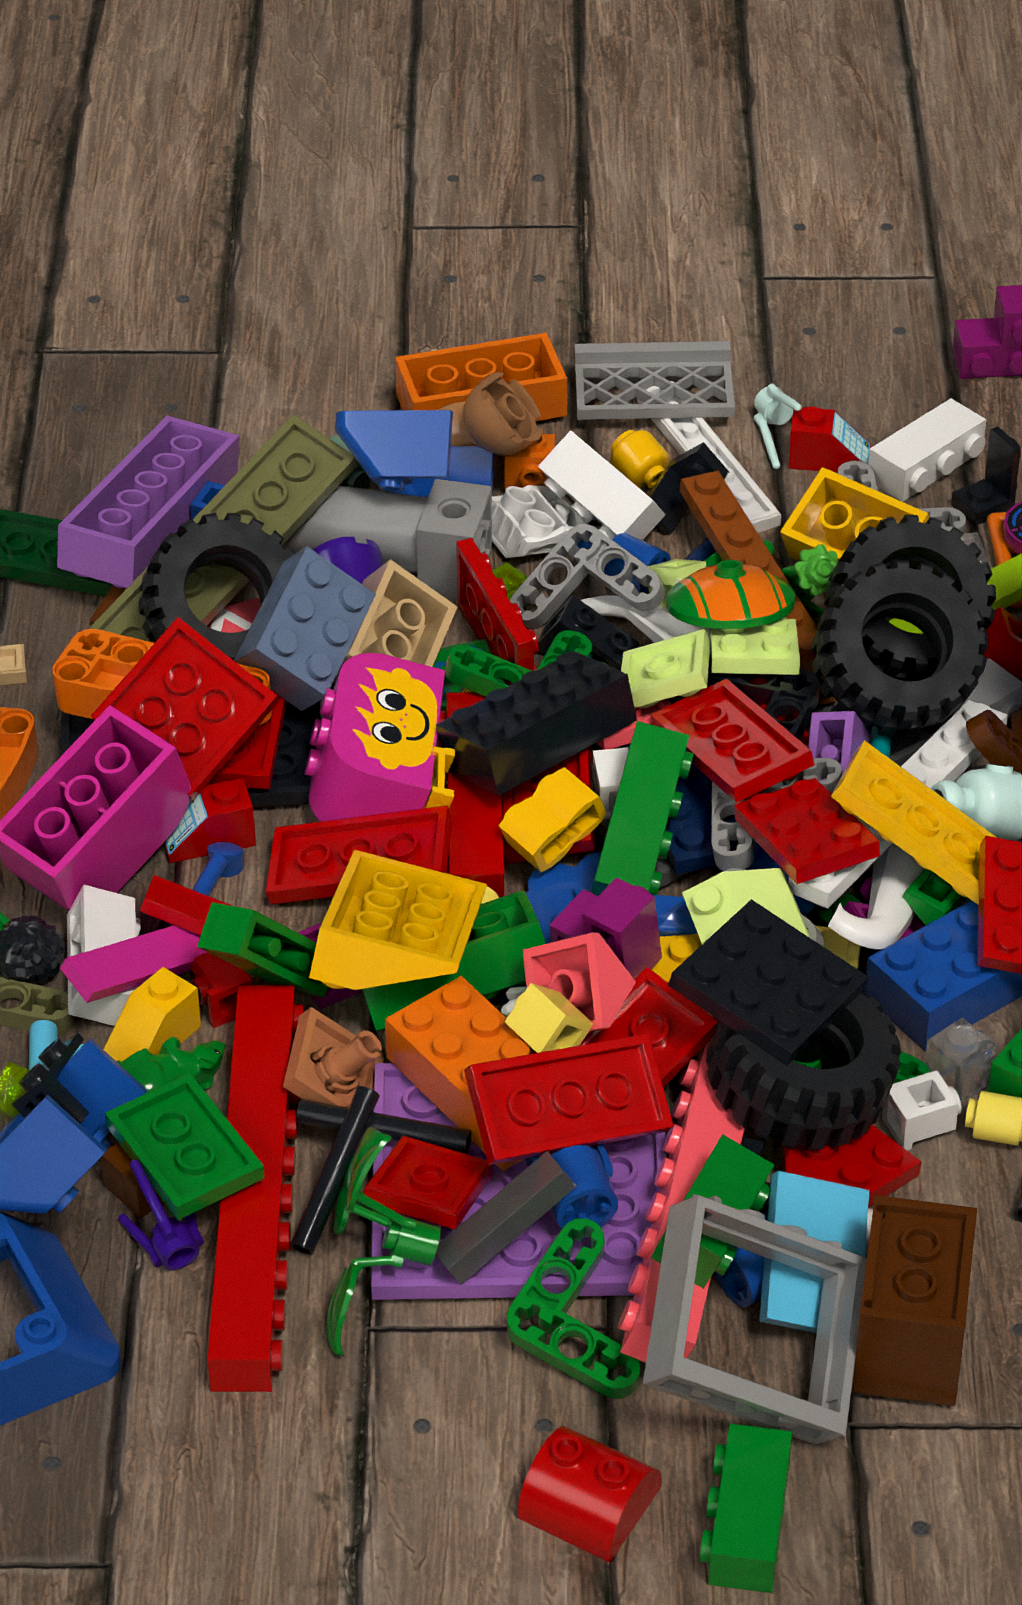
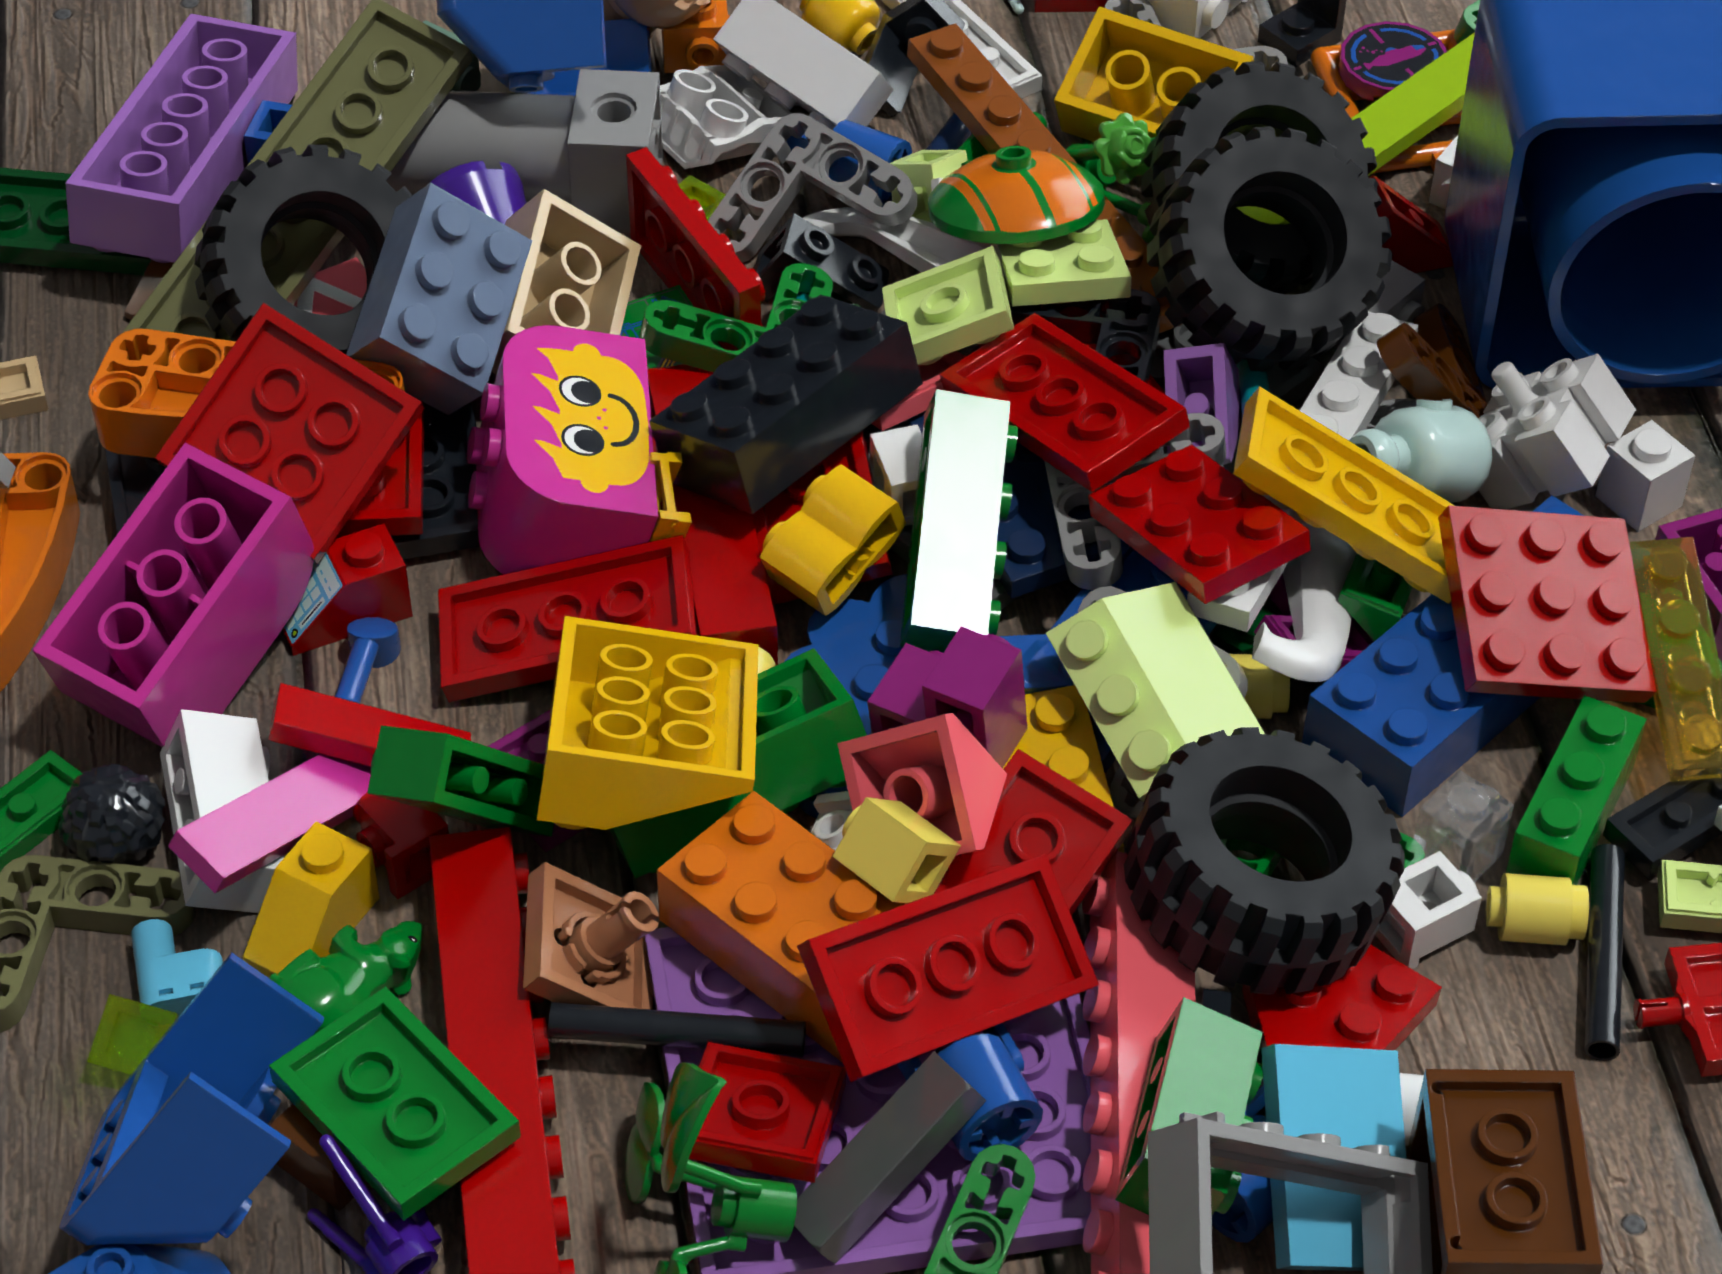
camera: 10 degrees left, 5 degrees up
(42, 1080) = (171, 1044): black bracket -> none
(334, 1170) = (619, 1108): black piece -> none
(768, 981) = (1206, 760): black plate -> none

